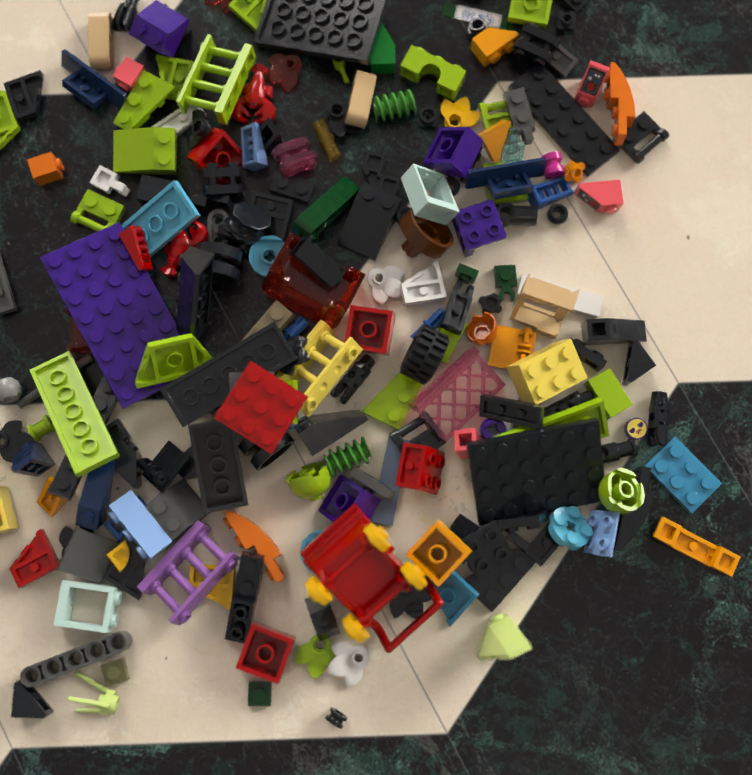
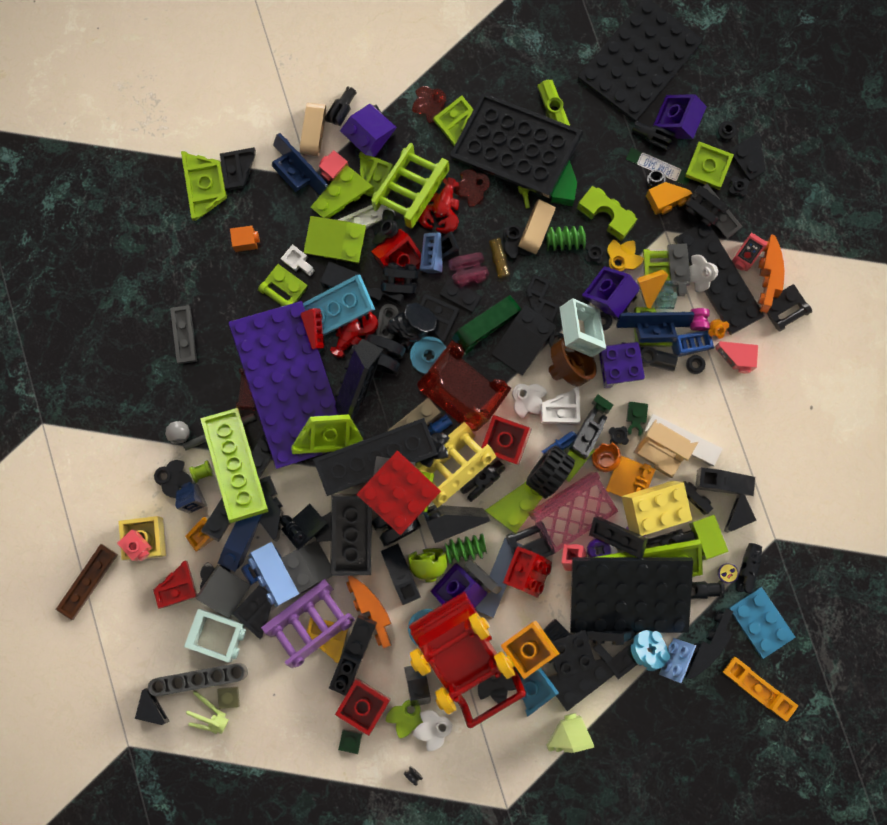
camera: 15 degrees right, 0 degrees up
(120, 555) = (251, 597): yellow tile -> none
(282, 498) = (400, 574): none -> black slope
(317, 262) = (471, 370): black window -> none
(543, 117) = (699, 273): none -> white plate
(621, 491) = (701, 627): lime cylinder -> none

